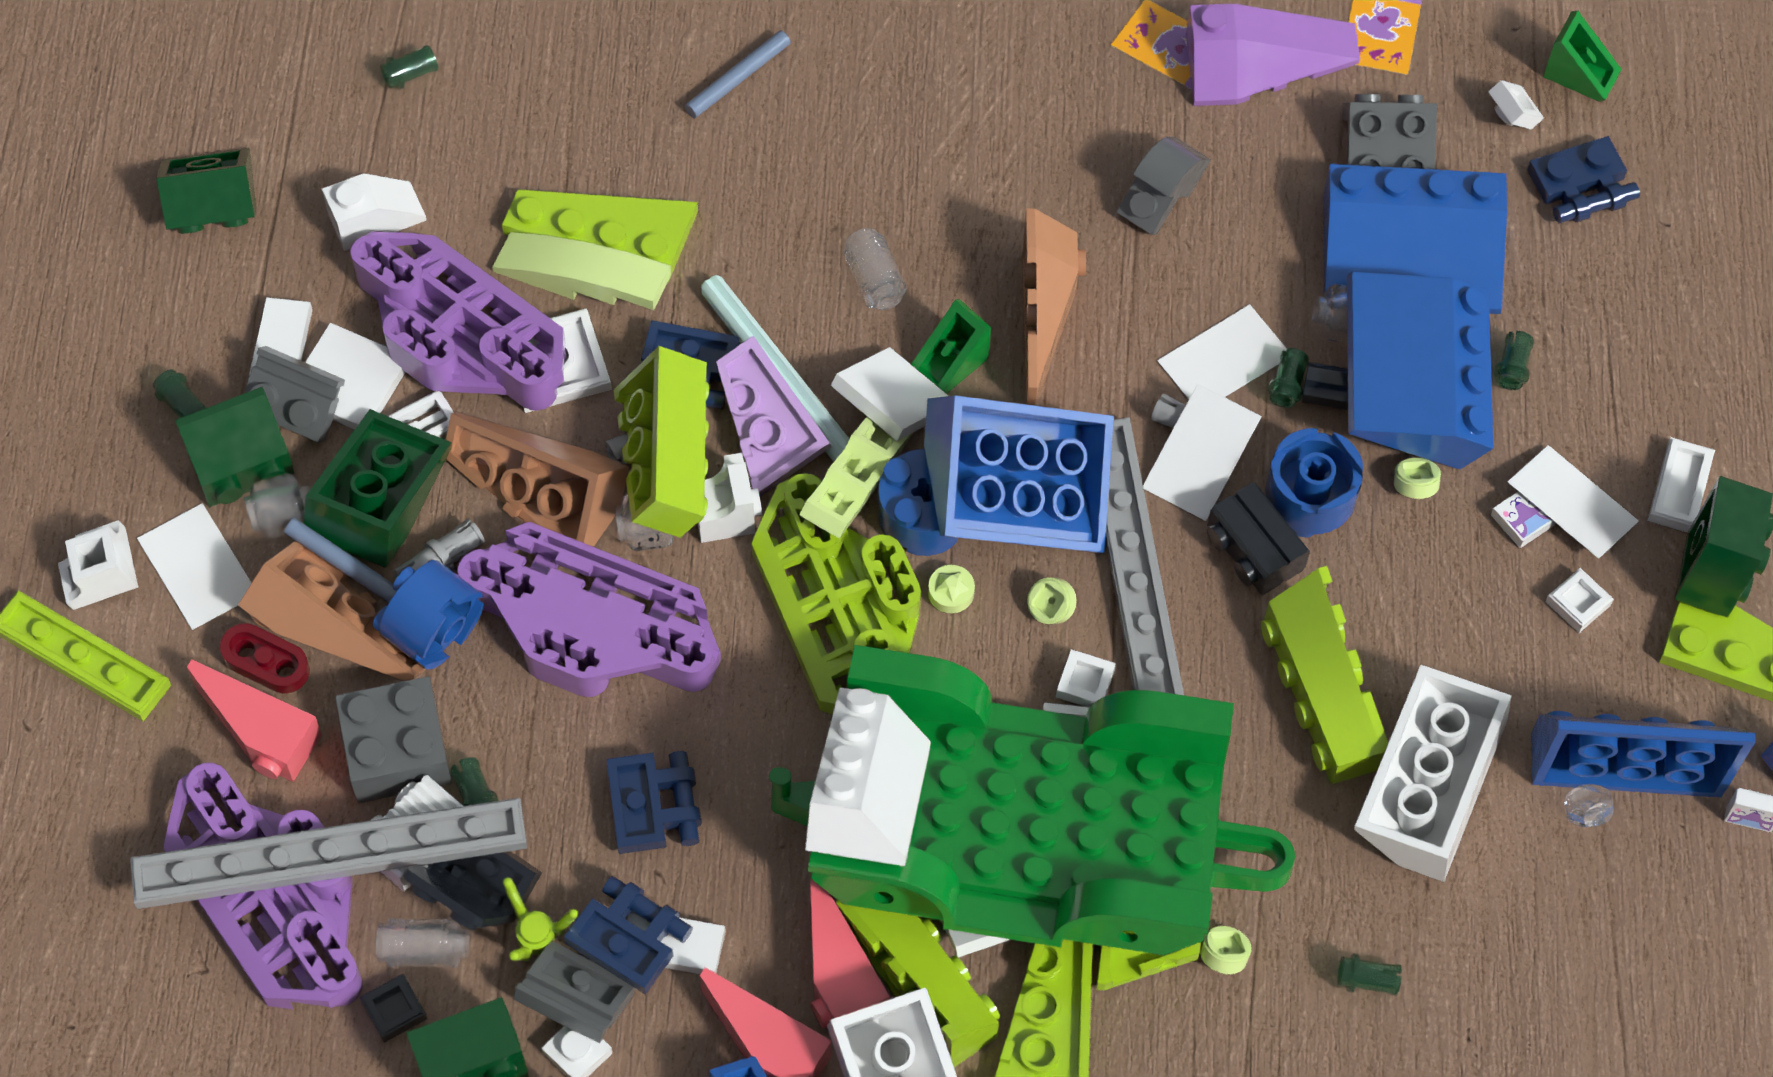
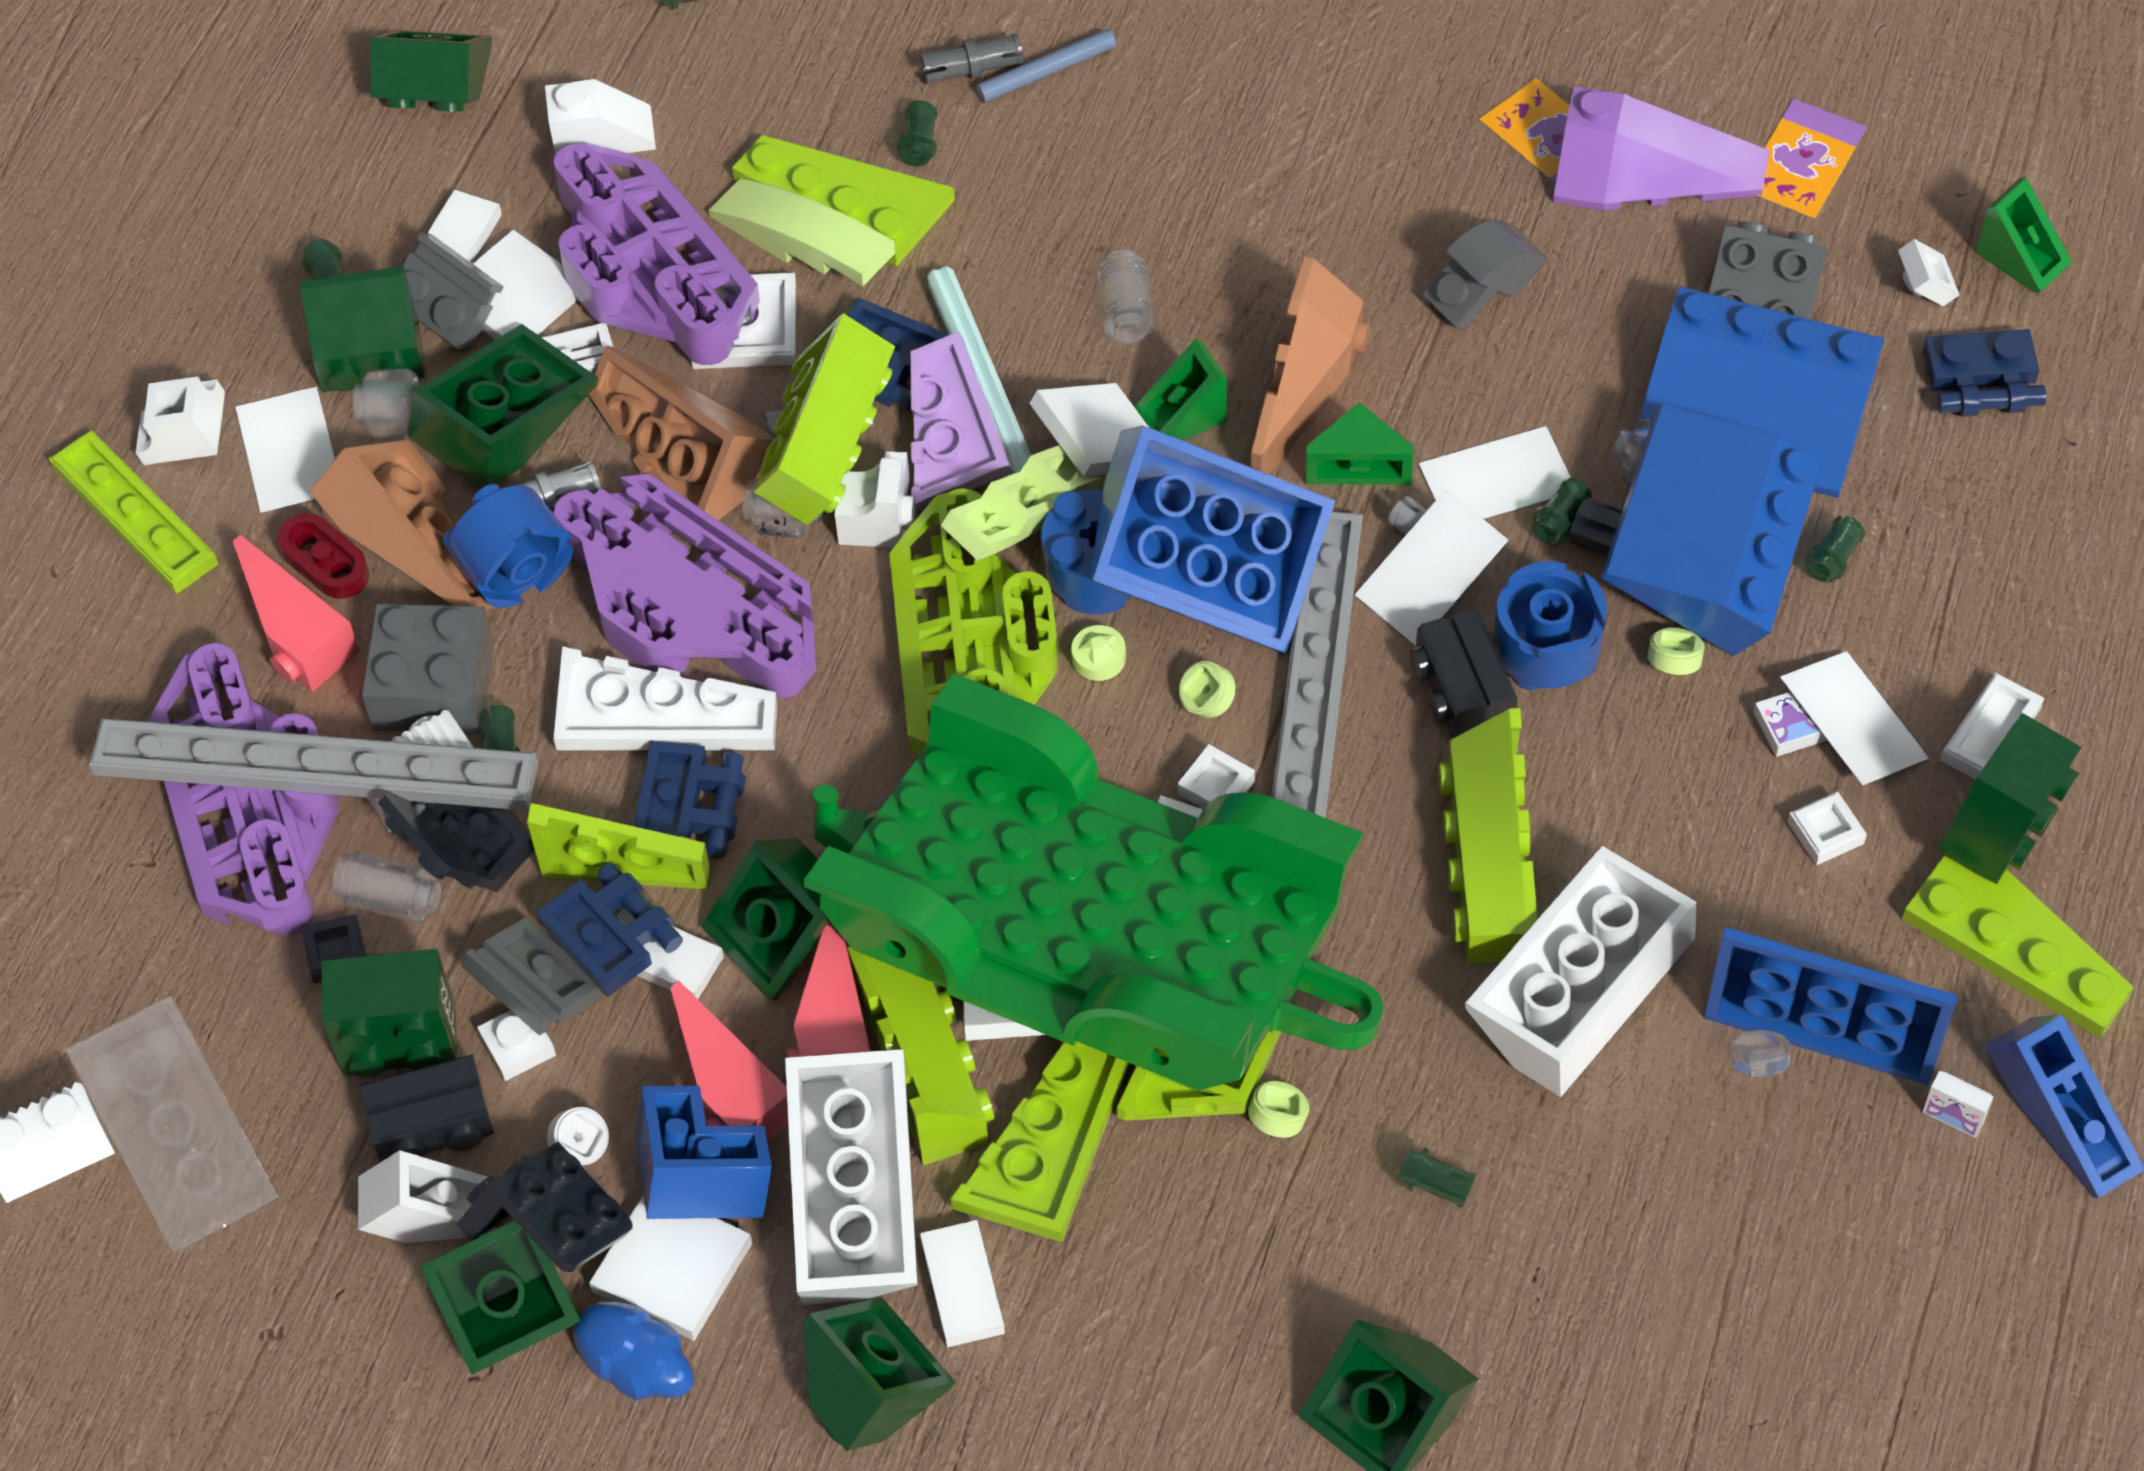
camera: 20 degrees right, 5 degrees down
(340, 559) = (430, 463): sand blue bar -> none
(534, 928) = (510, 898): lime plant -> none
(579, 732) = (628, 707): none -> white wing
(588, 867) = (580, 845): none -> lime wing
(652, 167) = (917, 142): none -> clear green pin
(673, 81) = (971, 58): none -> dark grey pin
(761, 886) = (768, 915): none -> dark green slope
(868, 780) = (906, 807): white slope -> none
(1112, 363) = (1359, 452): none -> green slope

